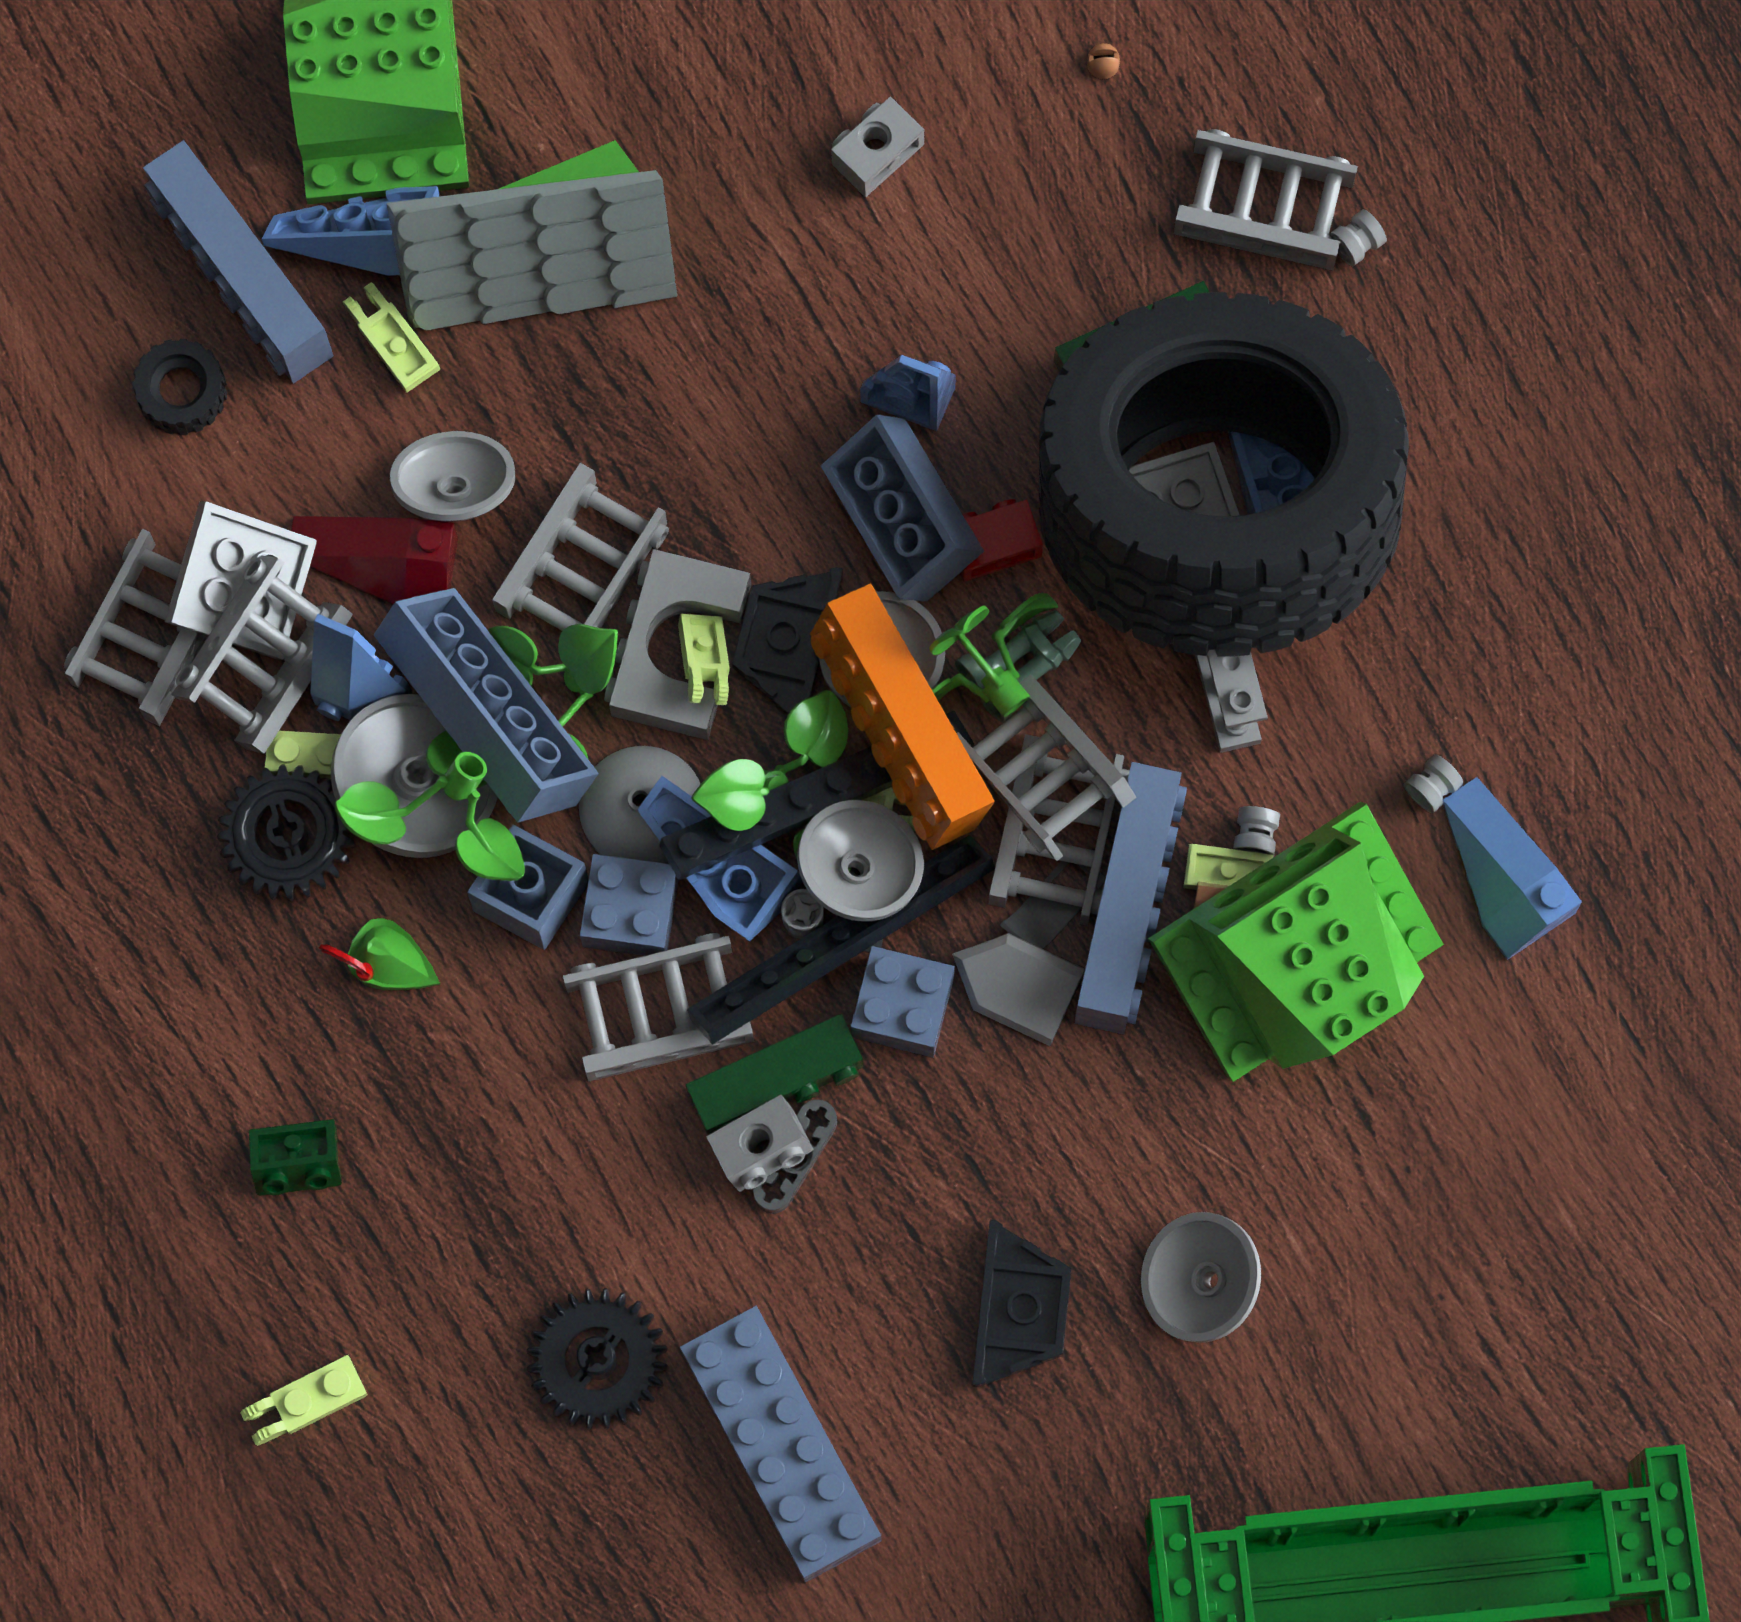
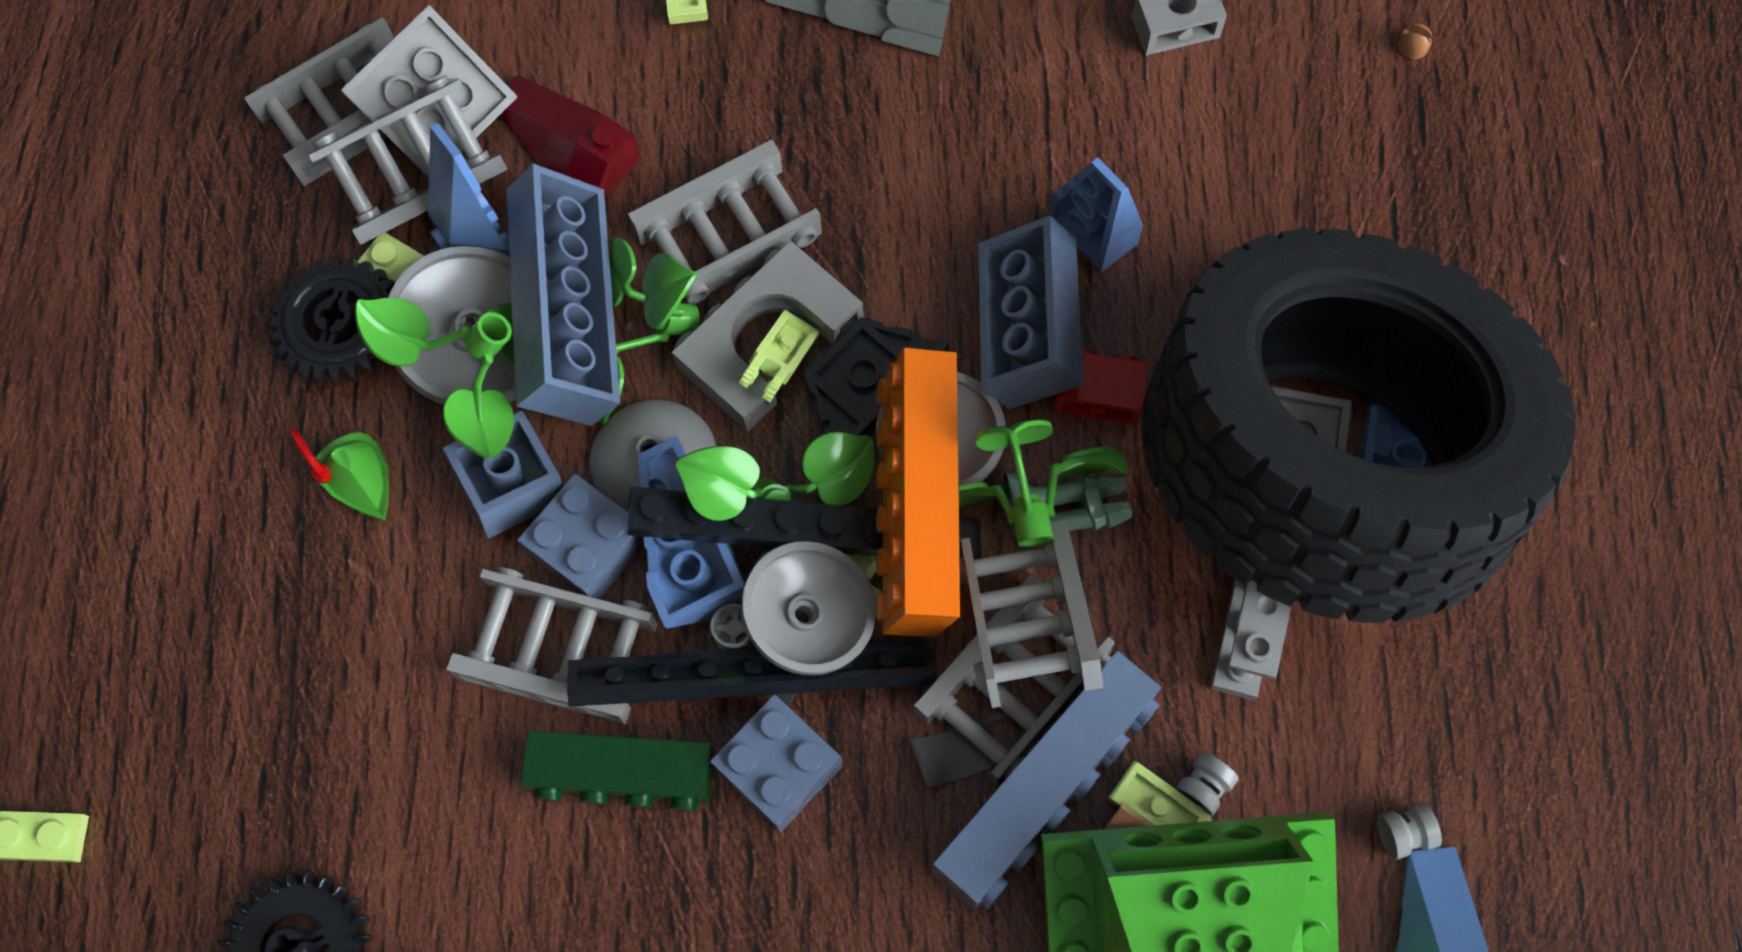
camera: 30 degrees right, 5 degrees down
(294, 1157) = (157, 604): dark green bracket -> none
(452, 476) = (658, 100): light grey dish -> none
(737, 1141) = (541, 814): light grey brick -> none
(821, 1135) = (558, 863): dark grey beam -> none
(1019, 984) = (897, 808): light grey tile -> none
(1277, 237) = (1486, 247): light grey fence -> none
(1359, 237) = (1572, 290): light grey wheel -> none

